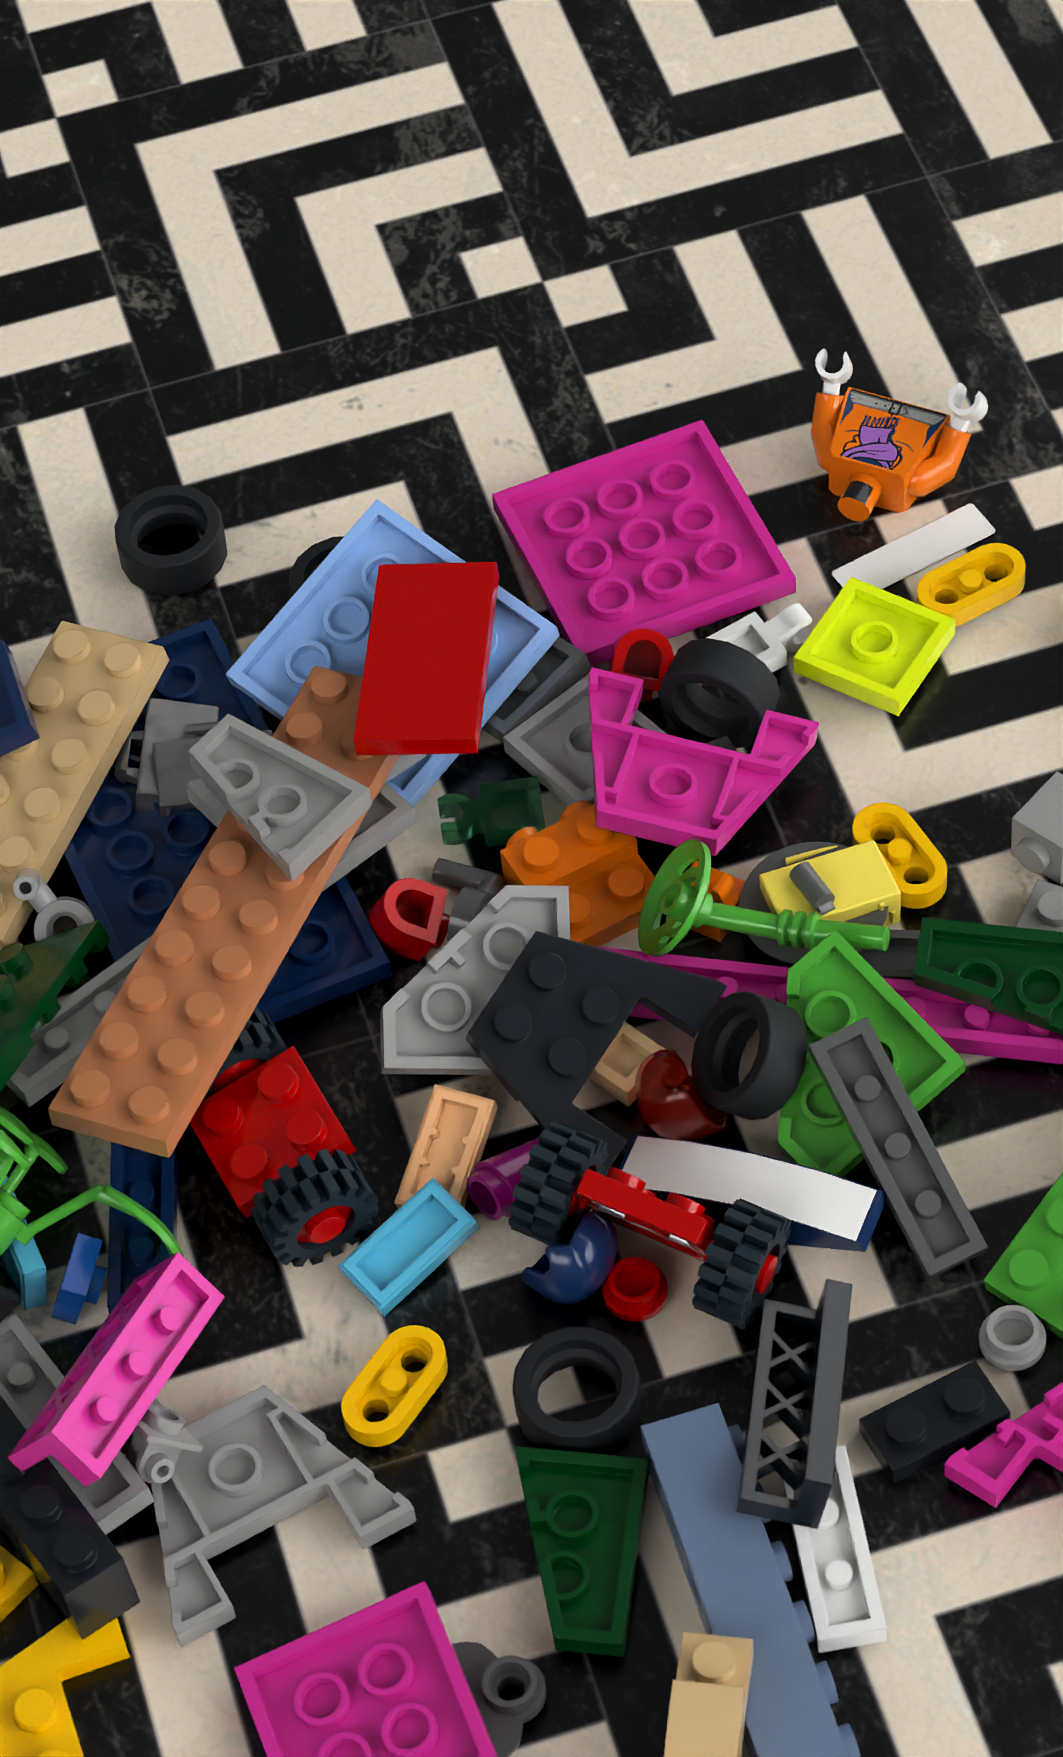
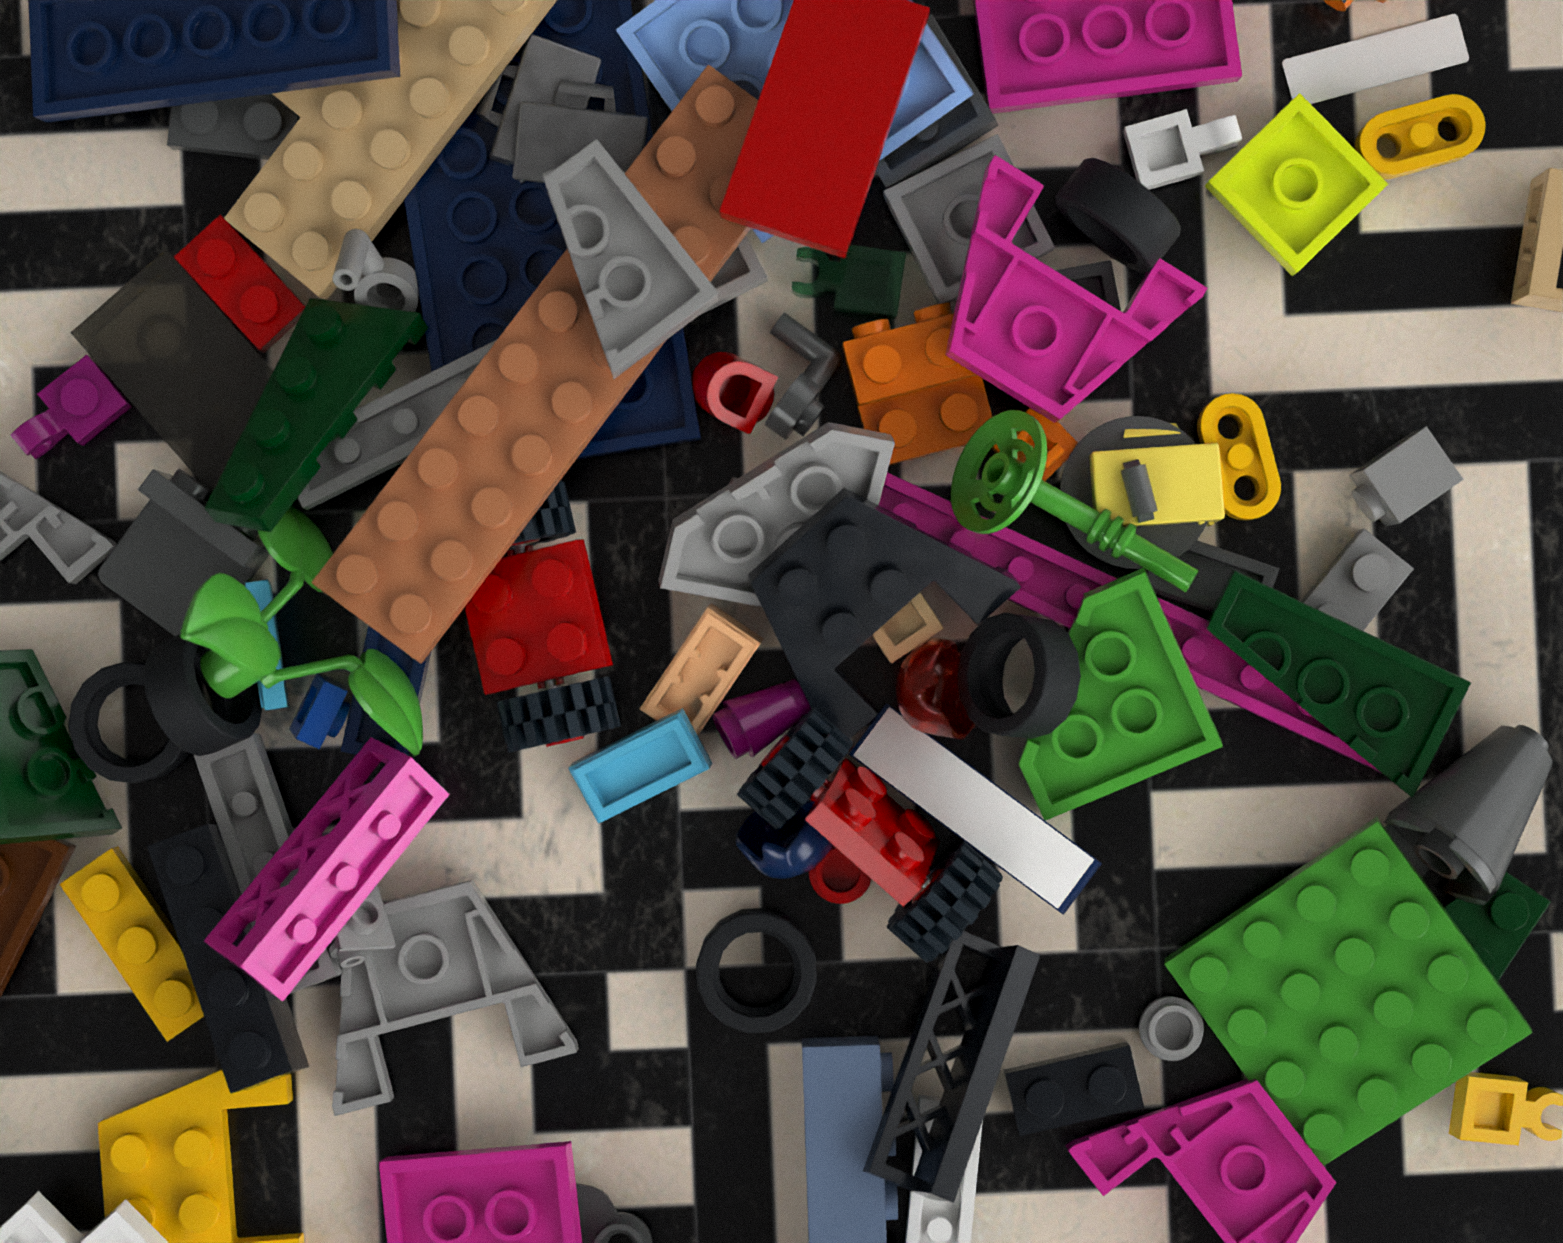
camera: 15 degrees right, 35 degrees up
(391, 1389) = (592, 911): yellow plate -> none
(586, 1541) = (724, 1123): dark green wing -> none
(642, 655) = (1049, 140): red plate -> none
(897, 1148) = (1127, 818): dark grey plate -> none

